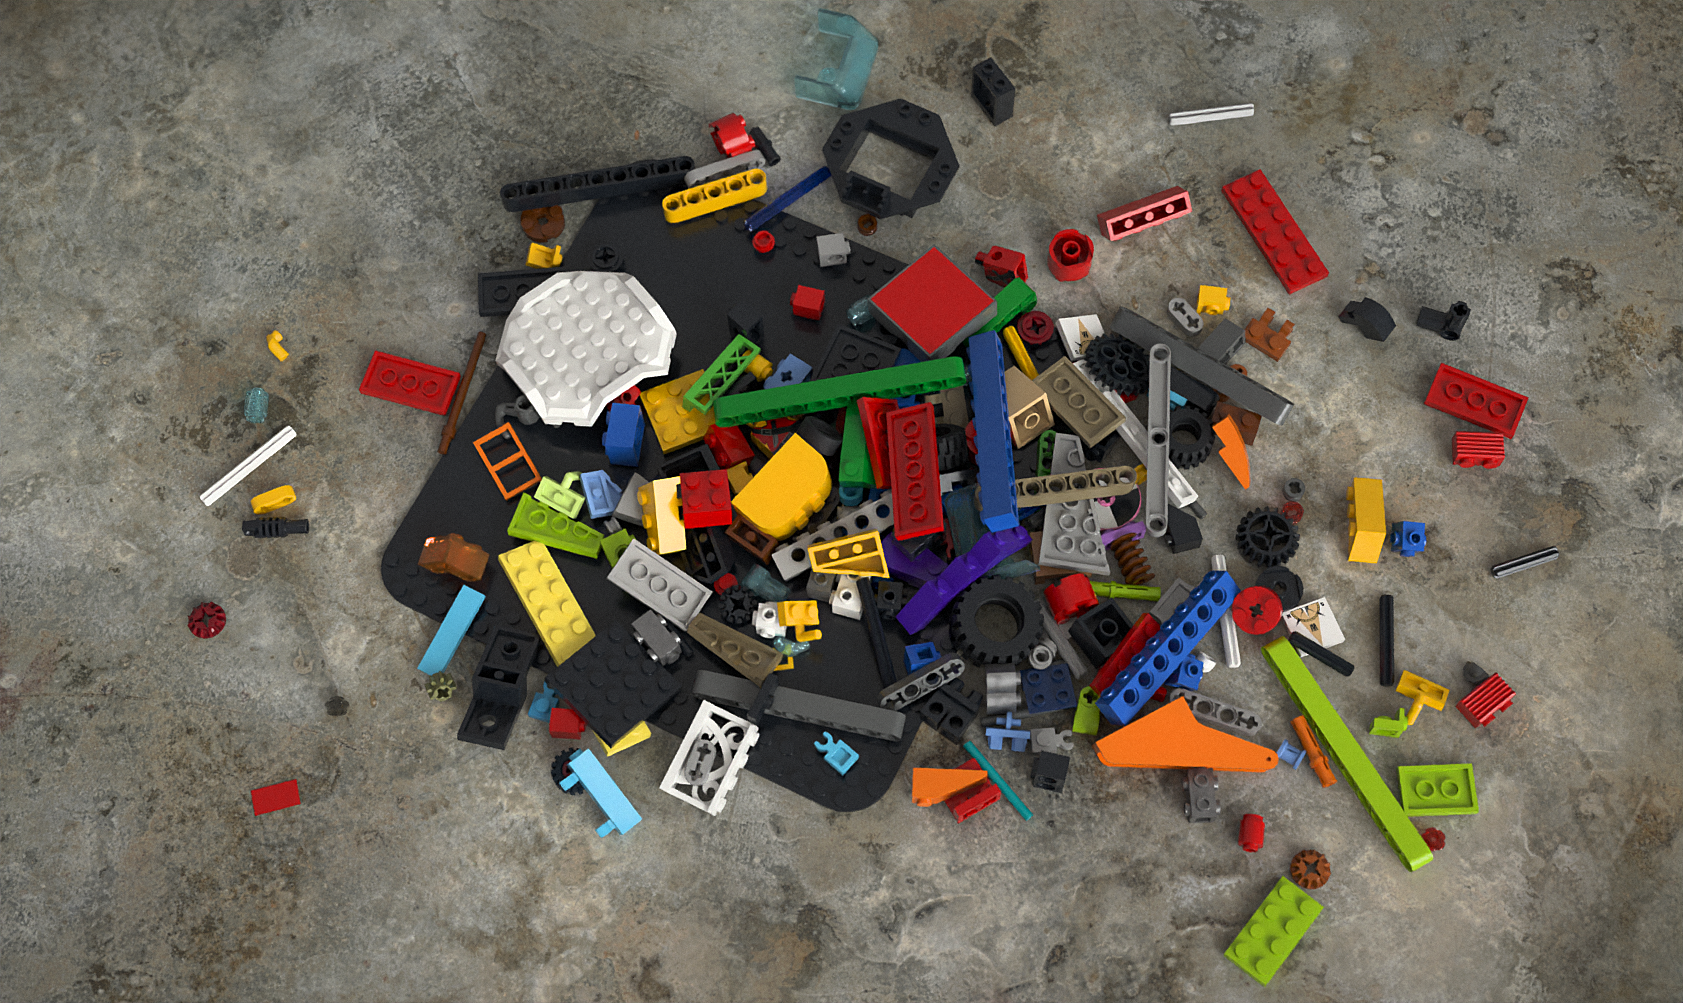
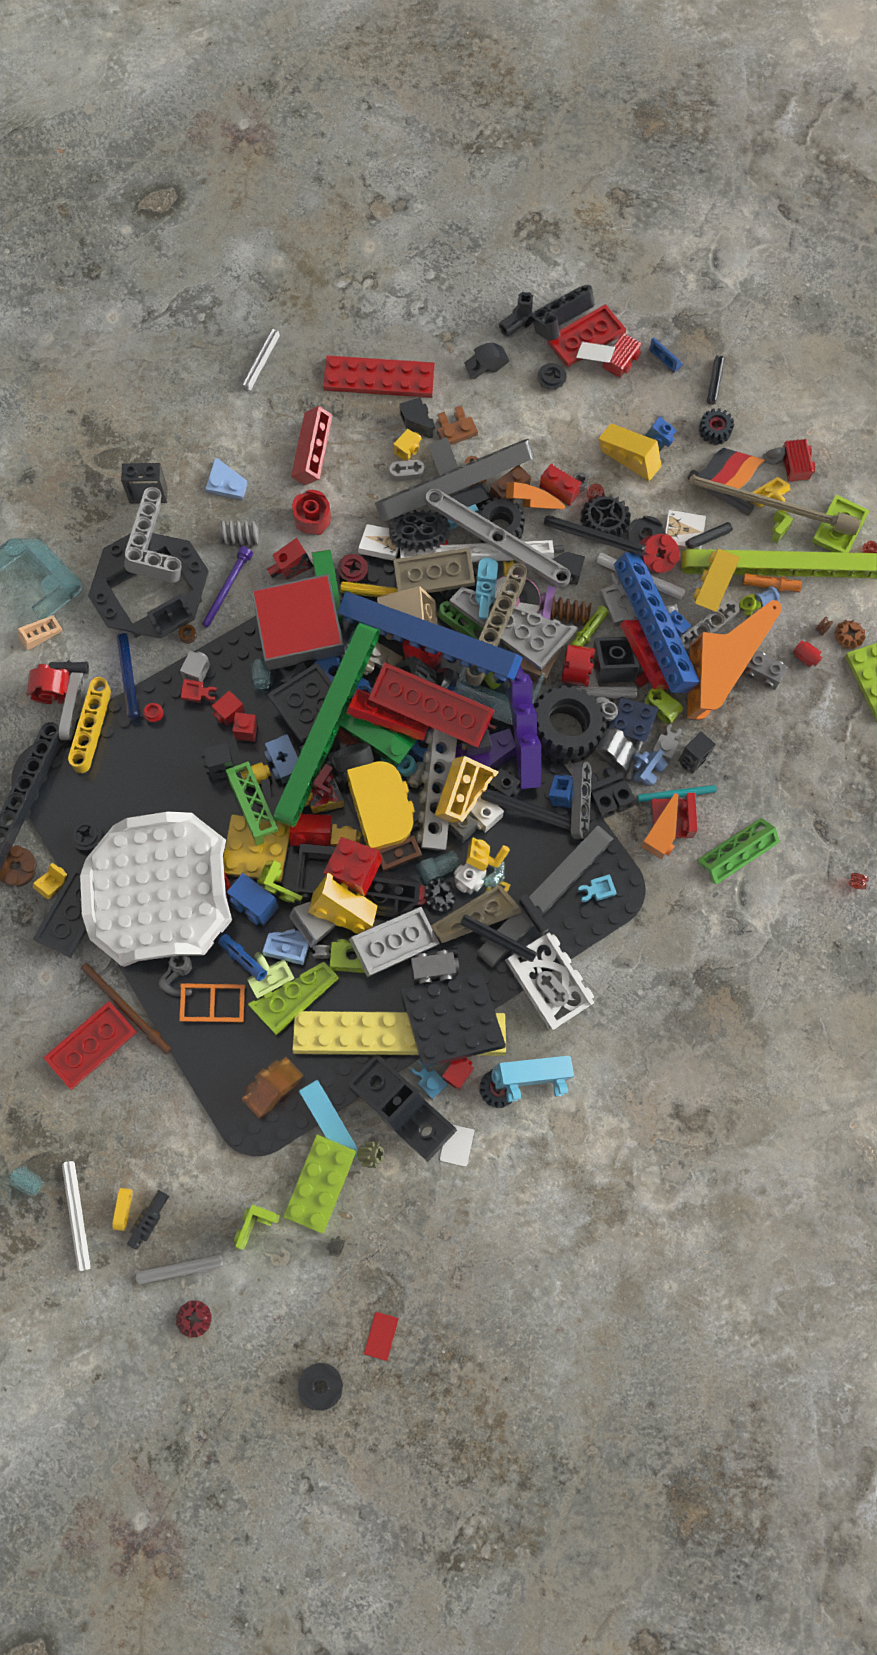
camera: 65 degrees left, 5 degrees up
(209, 776) = (321, 1400): none -> black plate
(245, 581) = (179, 1269): none -> light grey axle
(317, 612) = (250, 1215): none -> lime bracket
(388, 657) = (320, 1184): none -> lime plate
(496, 765) = (458, 1147): none -> white sticker
(567, 452) = (256, 971): none -> blue pin
(643, 440) = (270, 873): none -> lime bracket
(718, 676) = (498, 938): none -> black axle
(774, 102) = (29, 629): none -> light nougat slope
(780, 424) = (324, 779): none -> dark red bracket
(798, 328) = (245, 727): none -> red brick
(808, 263) = (194, 691): none -> red plate
(930, 124) = (137, 557): none -> light grey beam
(971, 881) = (742, 852): none -> bright green fence
(982, 224) = (243, 555): none -> dark purple piece
(1002, 206) = (239, 532): none -> light grey piece
(1052, 162) = (225, 481): none -> light blue wing
(1105, 455) = (486, 578): none -> medium azure piece
(1232, 534) = (595, 535): none -> black axle
(1250, 289) = (416, 418): none -> black slope
(1265, 683) = (715, 579): none -> yellow wedge
(1270, 739) = (746, 601): none -> lime plate
(1273, 471) = (560, 484): none -> red brick
(1298, 834) = (824, 625): none -> reddish brown bush
(1404, 386) = (547, 370): none -> black gear
(1422, 637) = (733, 470): none -> flag
(1458, 418) = (595, 352): none -> white sticker
(1458, 600) = (721, 433): none -> black bush
(1486, 359) = (551, 316): none -> black beam
(1516, 494) = (665, 355): none -> blue slope

